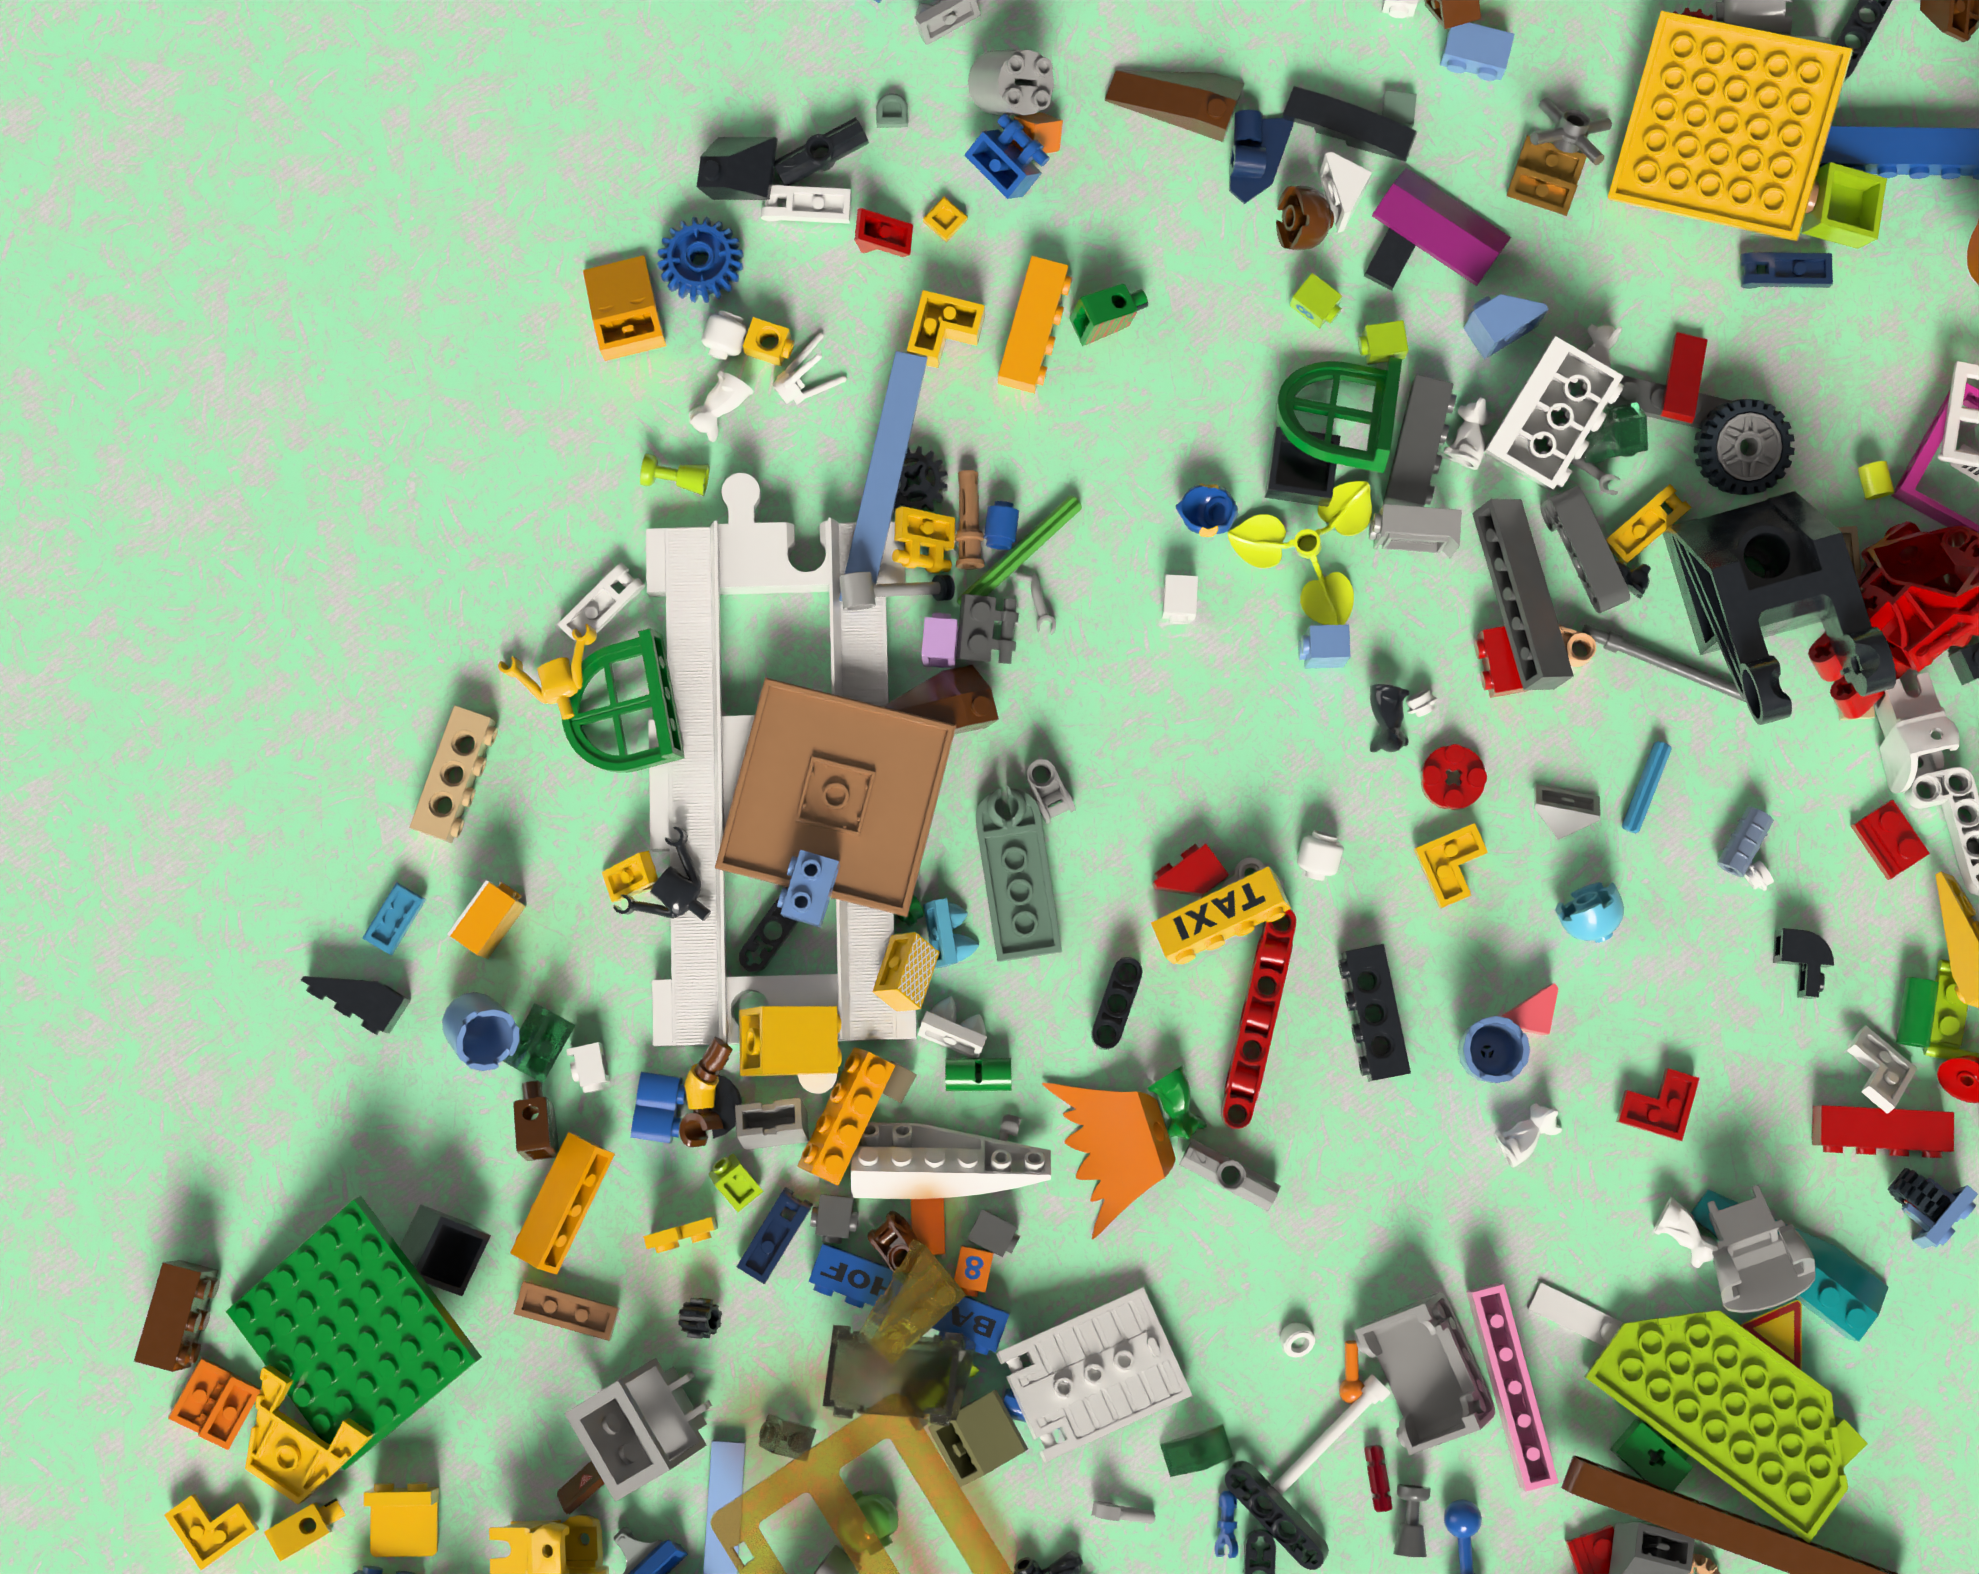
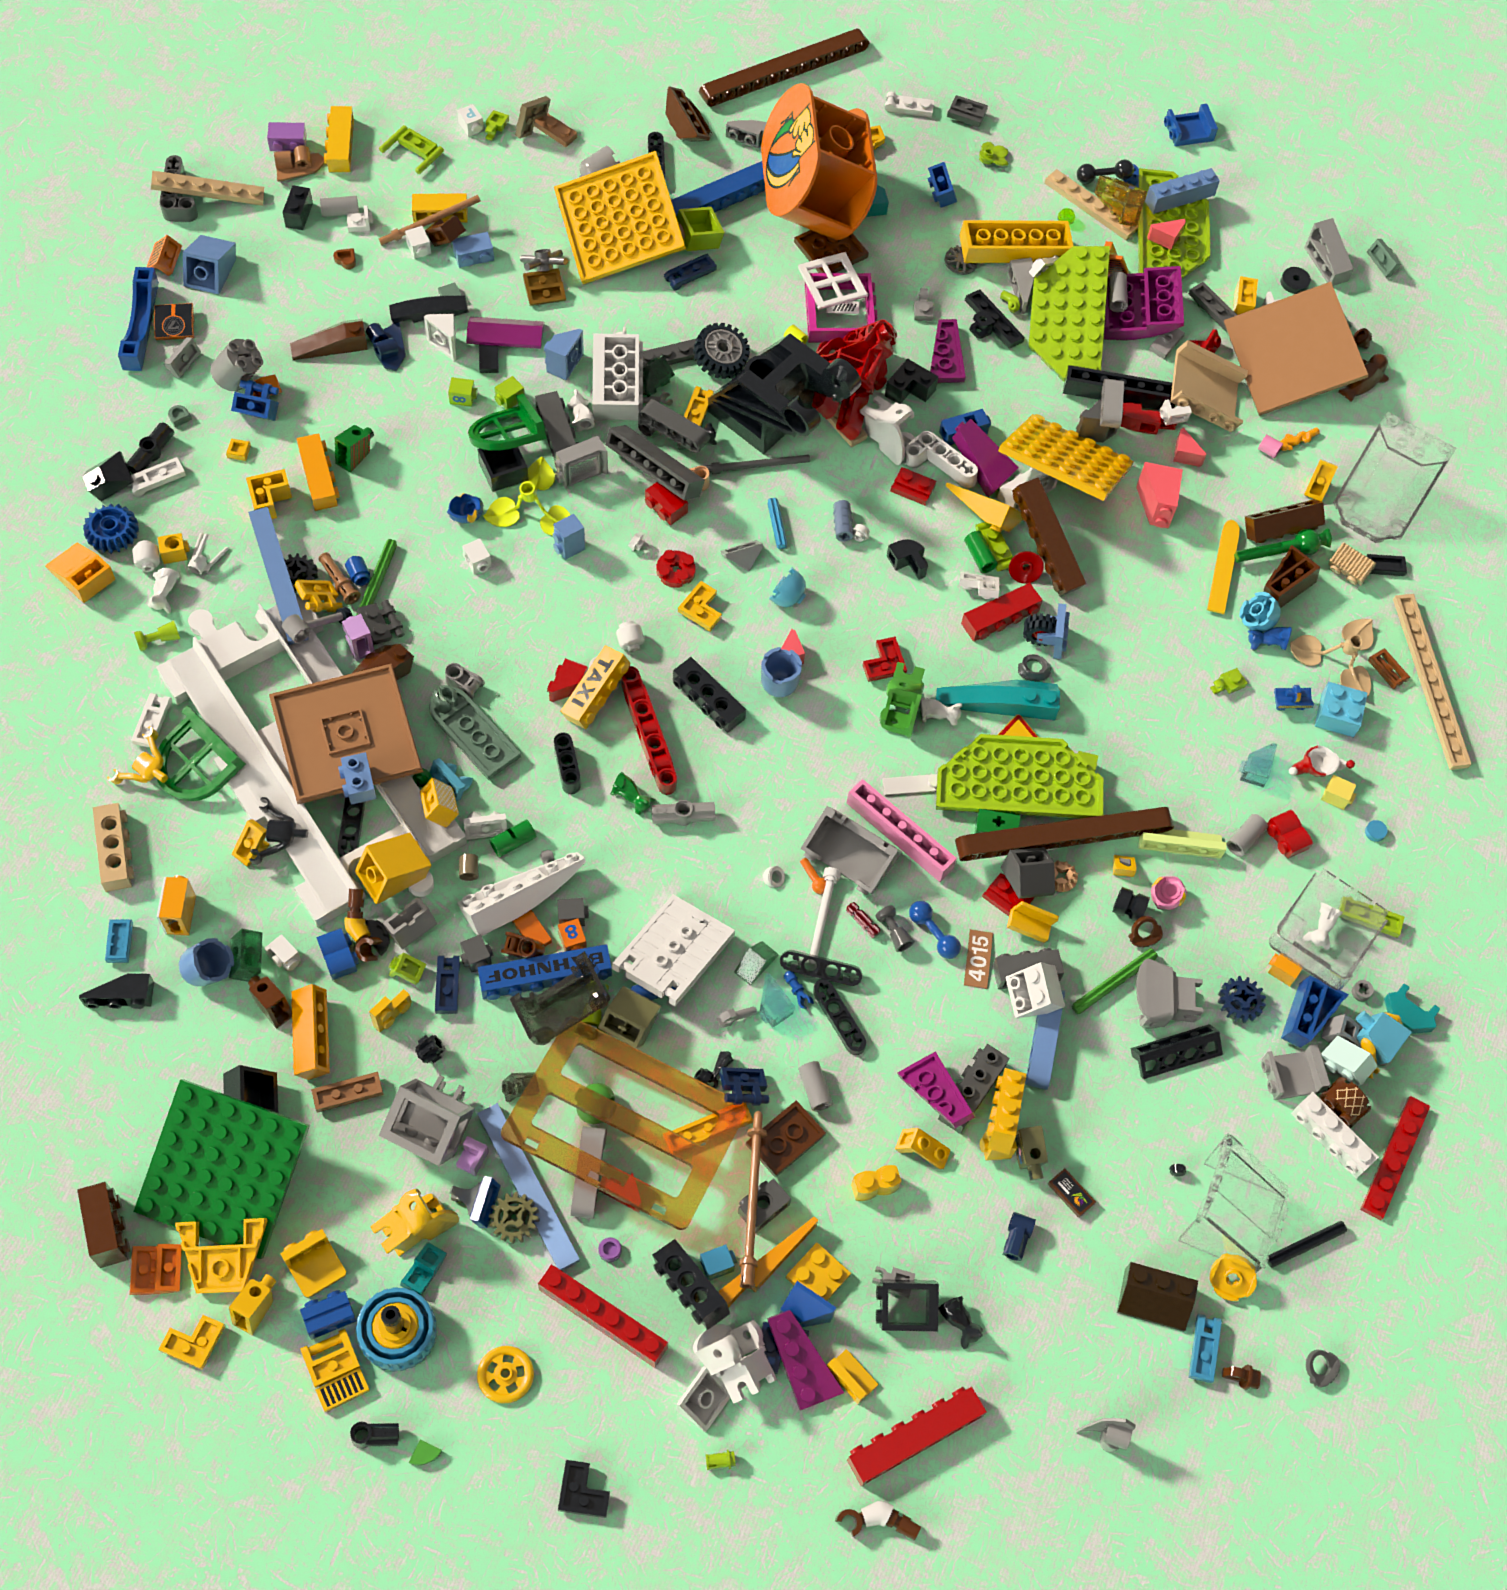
camera: 40 degrees left, 20 degrees down
(579, 1488) = (417, 1175): reddish brown slope -> none
(672, 1496) = (472, 1156): none -> lavender panel
(846, 1115) = (450, 896): light orange brick -> none
(882, 233) = (207, 467): red slope -> none
(911, 1304) = (547, 958): clear yellow wedge -> none
(1038, 600) = (409, 602): light grey piece -> none
(1124, 1143) = (614, 829): orange piece -> none
(1181, 1526) = (774, 1003): none -> clear light blue slope
(1304, 218) = (431, 357): reddish brown cylinder -> none
(1388, 711) = (619, 550): black animal -> none
(1523, 1138) = (825, 713): white animal -> none
(1644, 1193) = (905, 692): none -> bright green piece
(1684, 377) = (671, 336): red tile -> none
(1755, 1263) = (978, 698): light grey piece -> none
(1854, 1238) = (1025, 672): none -> dark grey piece

